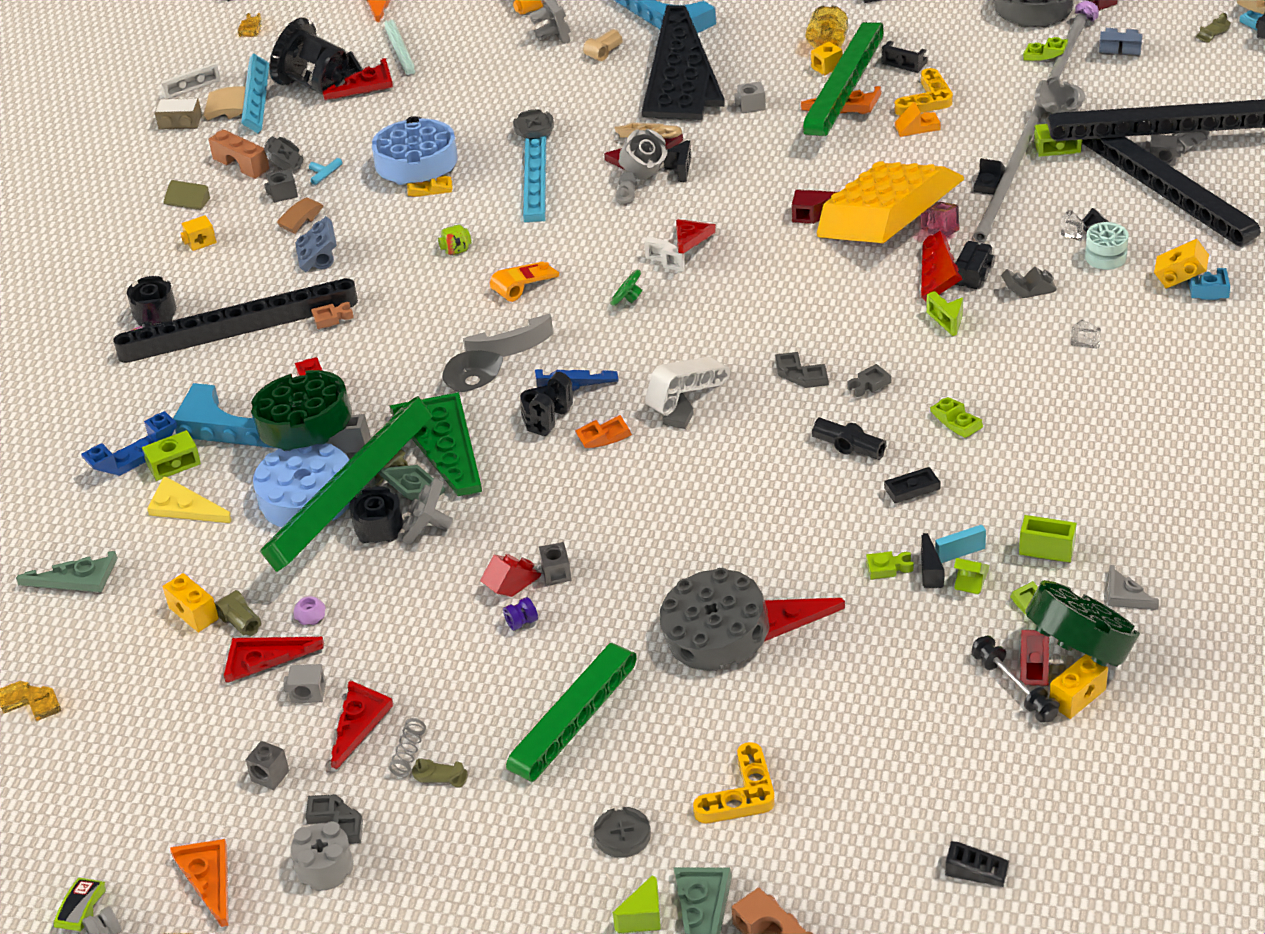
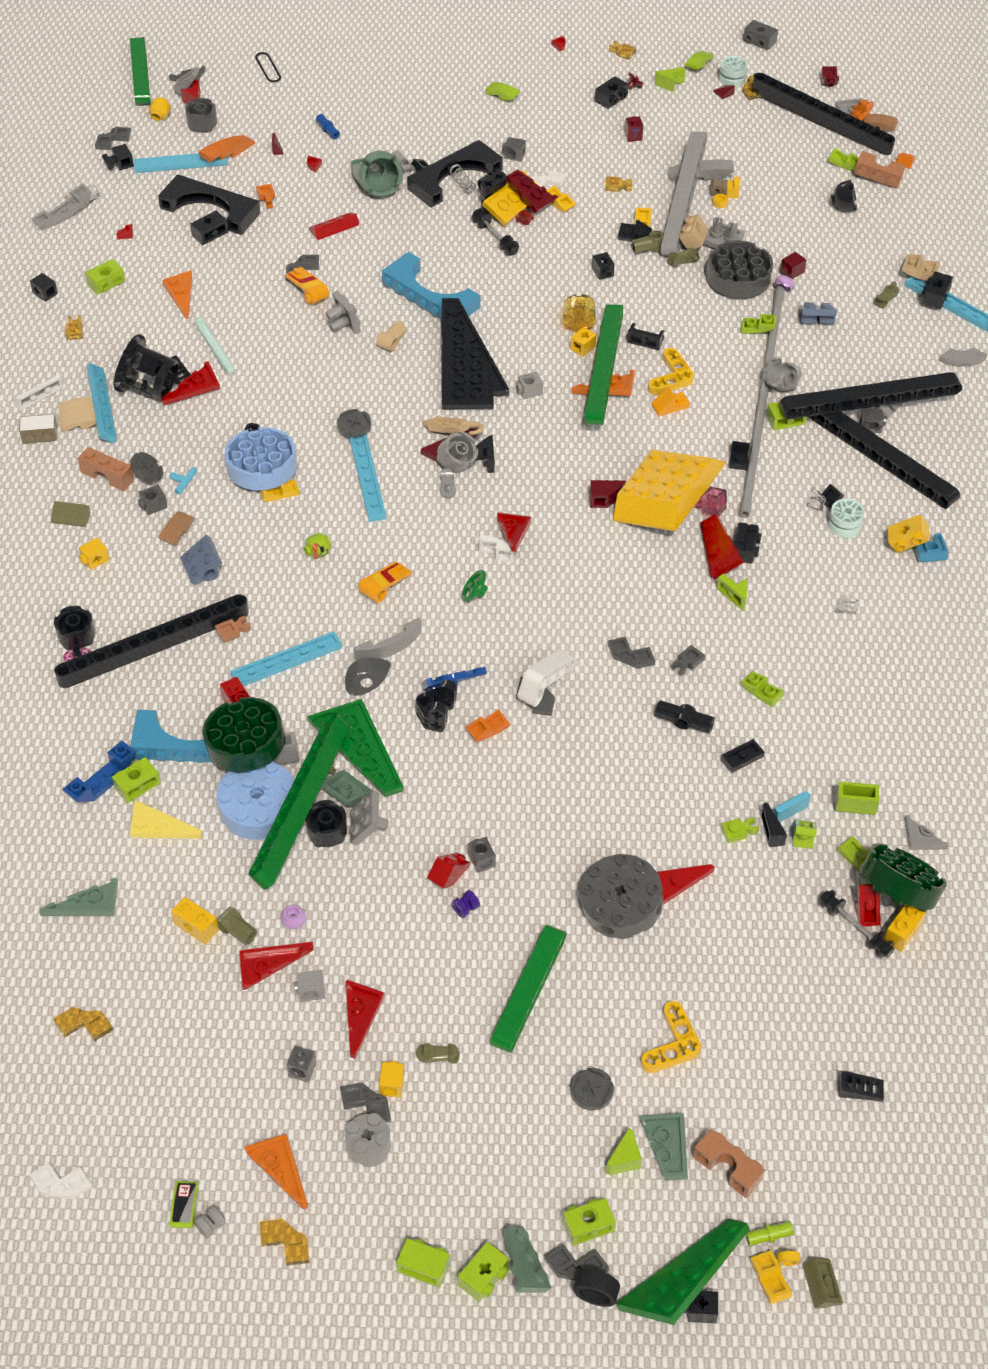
camera: 15 degrees left, 10 degrees up
(372, 793) = (391, 1079): none -> yellow brick
(386, 349) = (287, 659): none -> medium azure tile
(404, 762) = (411, 1051): light grey piece -> none
(1032, 284) = (794, 557): dark grey slope -> none

